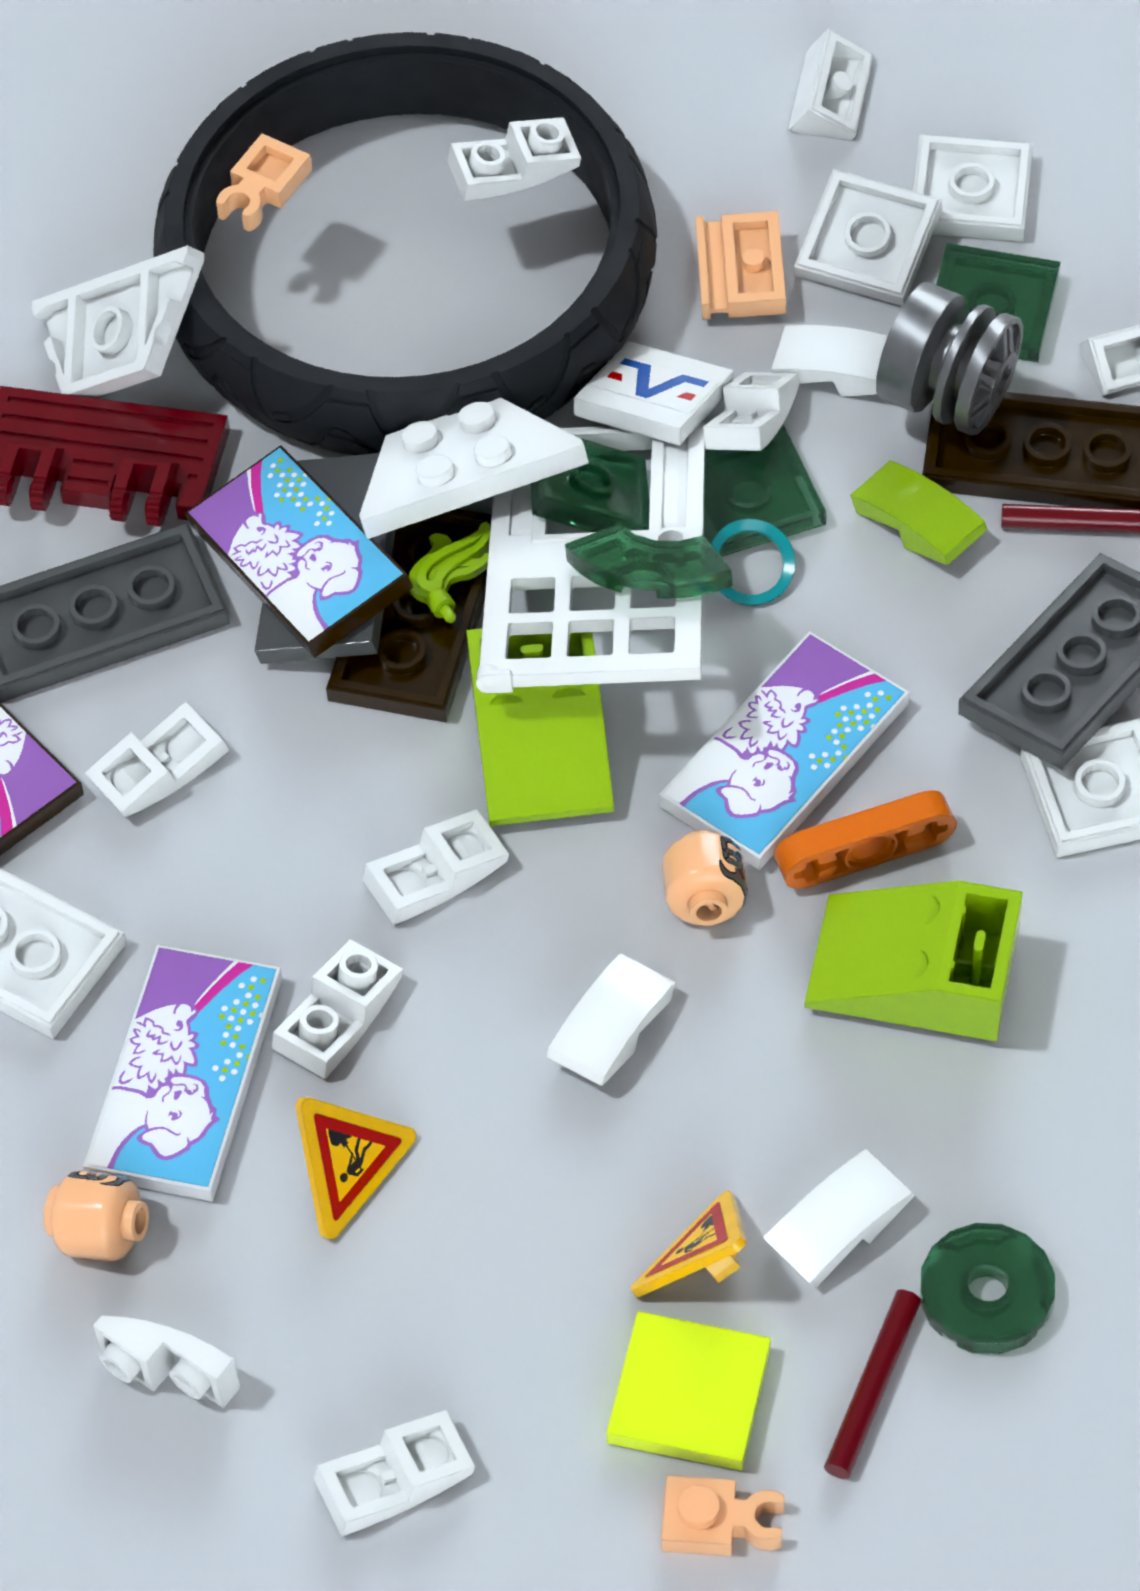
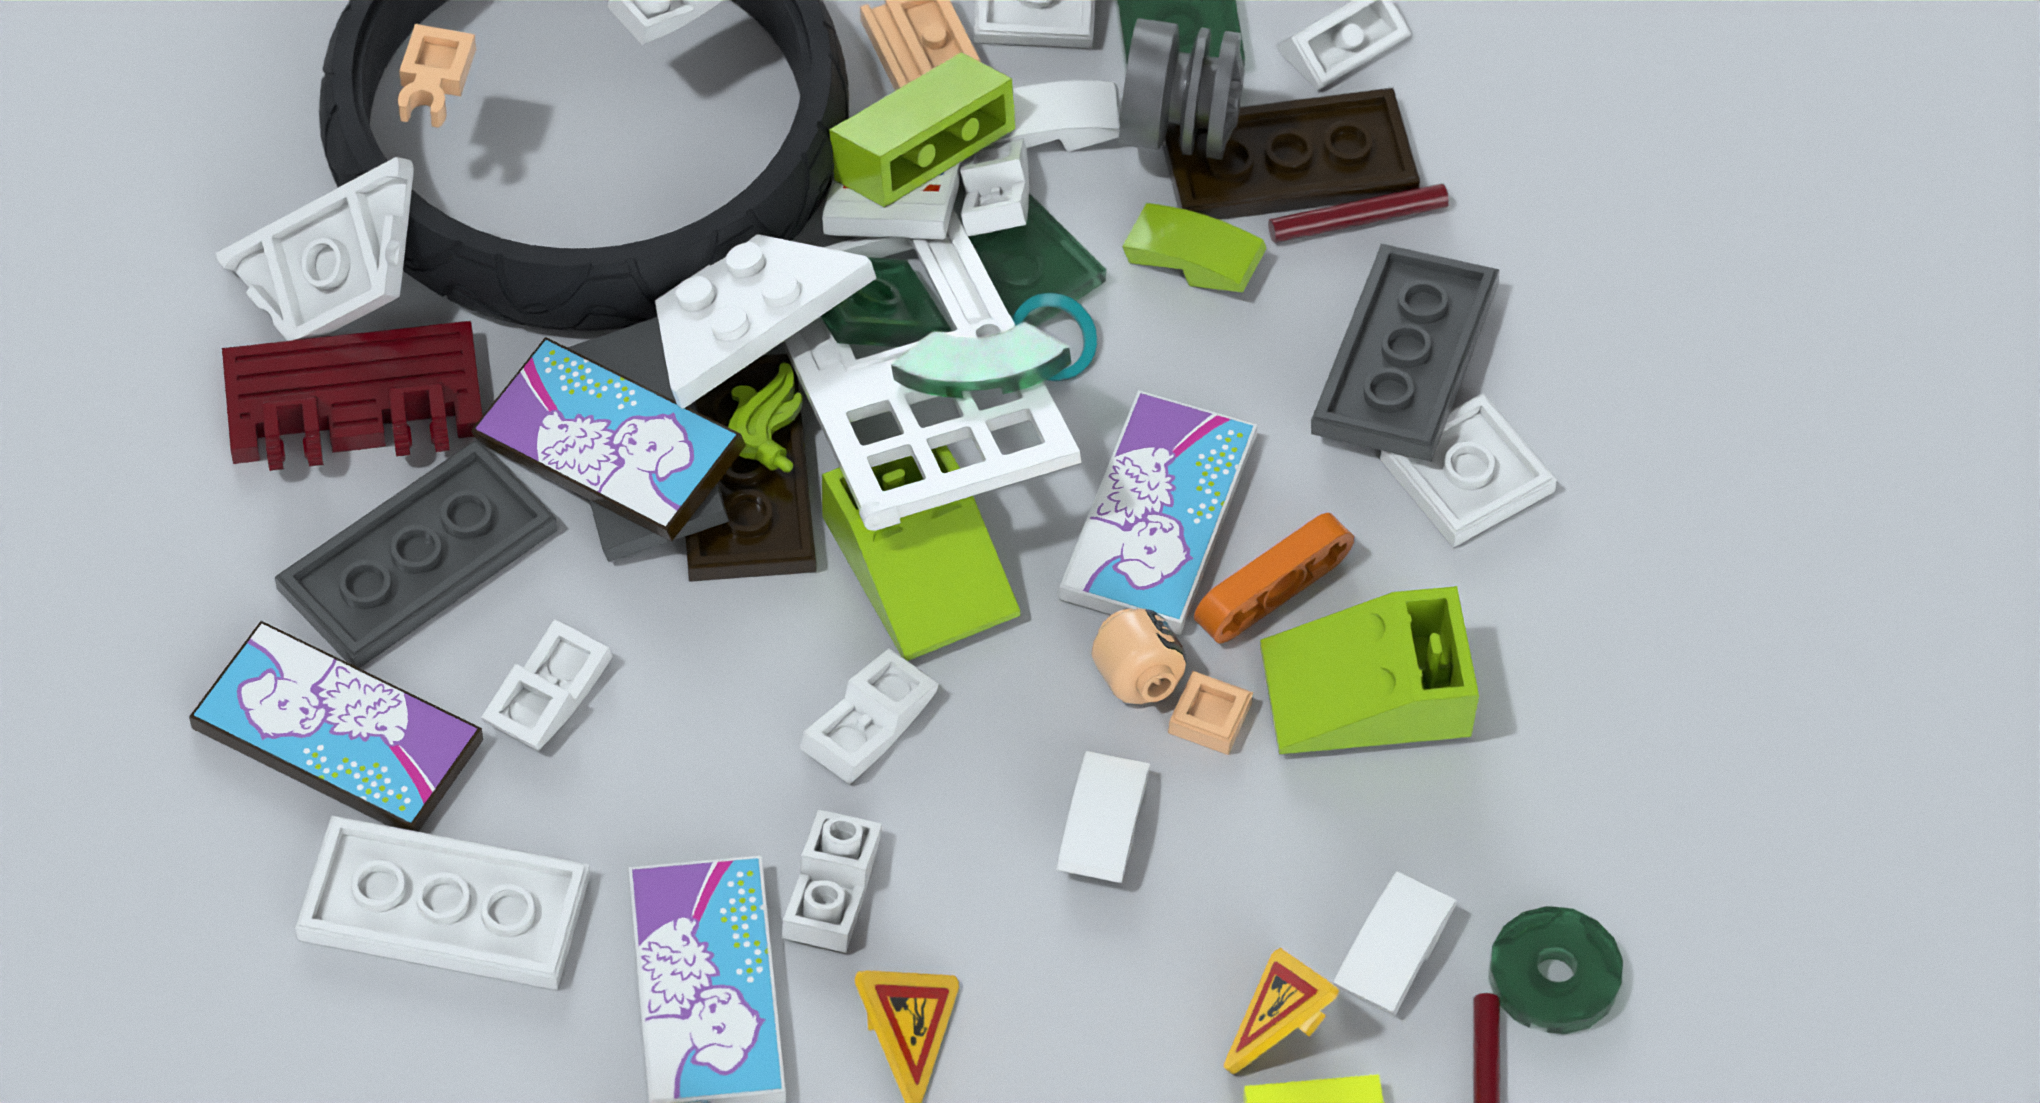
camera: 25 degrees left, 0 degrees up
(698, 340) = (922, 129): none -> lime brick
(756, 950) = (1210, 712): none -> light nougat tile

